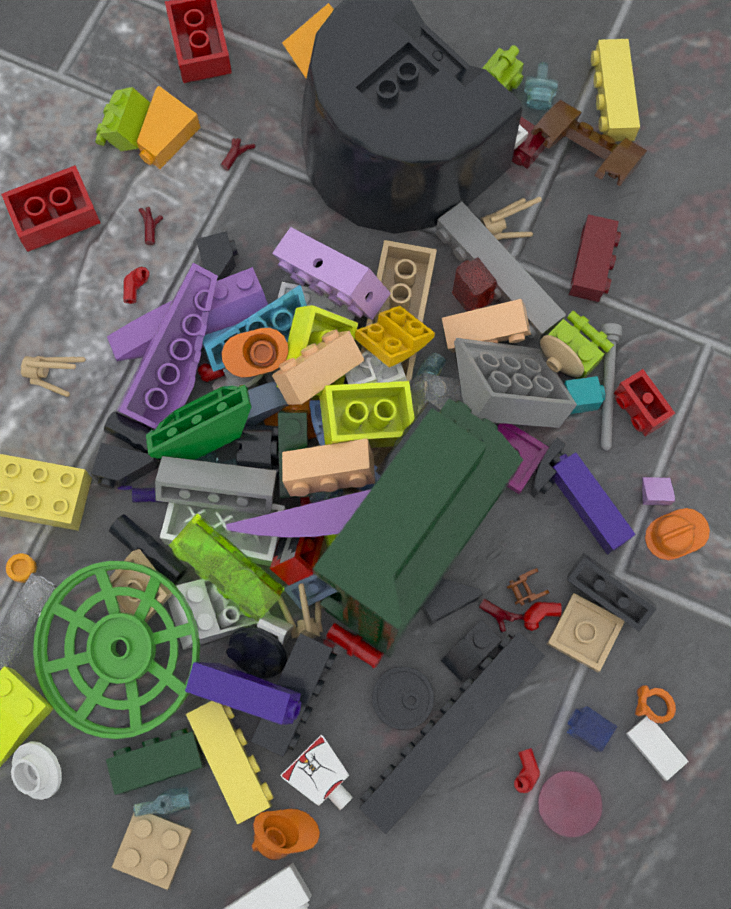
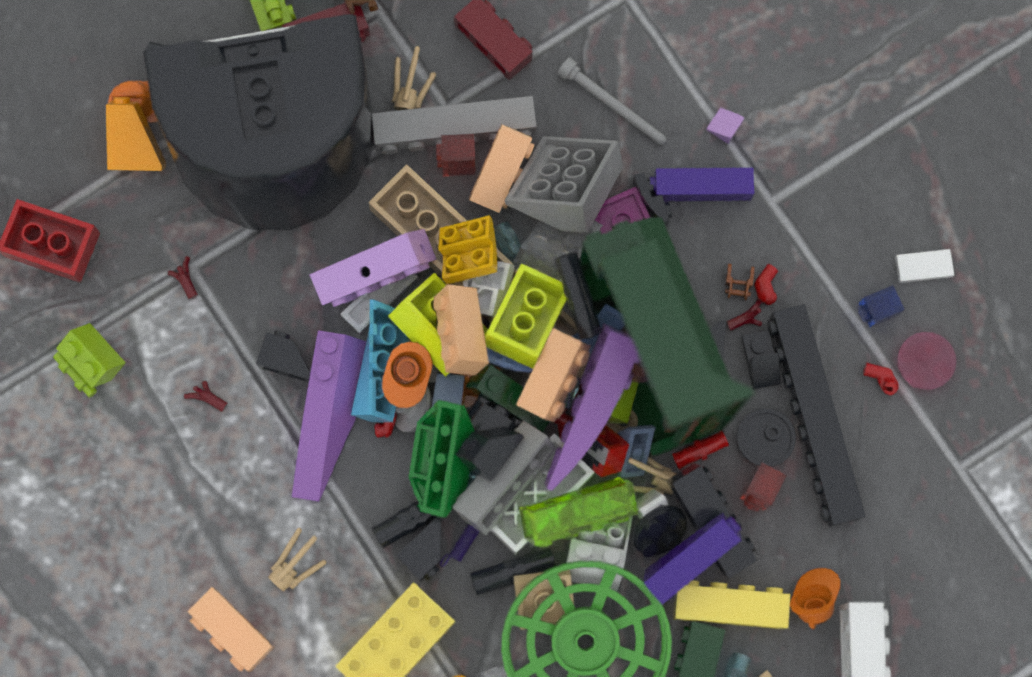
camera: 60 degrees left, 5 degrees up
(50, 208) = (137, 474): red brick -> none
(133, 282) = (254, 443): red arm -> none
(165, 128) = (121, 325): light orange slope -> none
(172, 357) = (360, 455): medium lavender wedge -> none
(228, 453) = (488, 450): none -> black slope
(319, 774) = (786, 541): white torso -> none
(351, 720) = (762, 487): none -> clear red brick
(561, 357) = (567, 126): tan dish -> none
(585, 350) = (564, 110): lime brick -> none
(585, 632) = (803, 260): tan plate -> none
(586, 393) = (609, 125): teal brick -> none
(611, 592) = (785, 218): black brick -> none
(642, 708) = (889, 256): orange piece -> none
(643, 403) = (648, 86): red brick -> none
(677, 534) = (769, 133): orange piece -> none

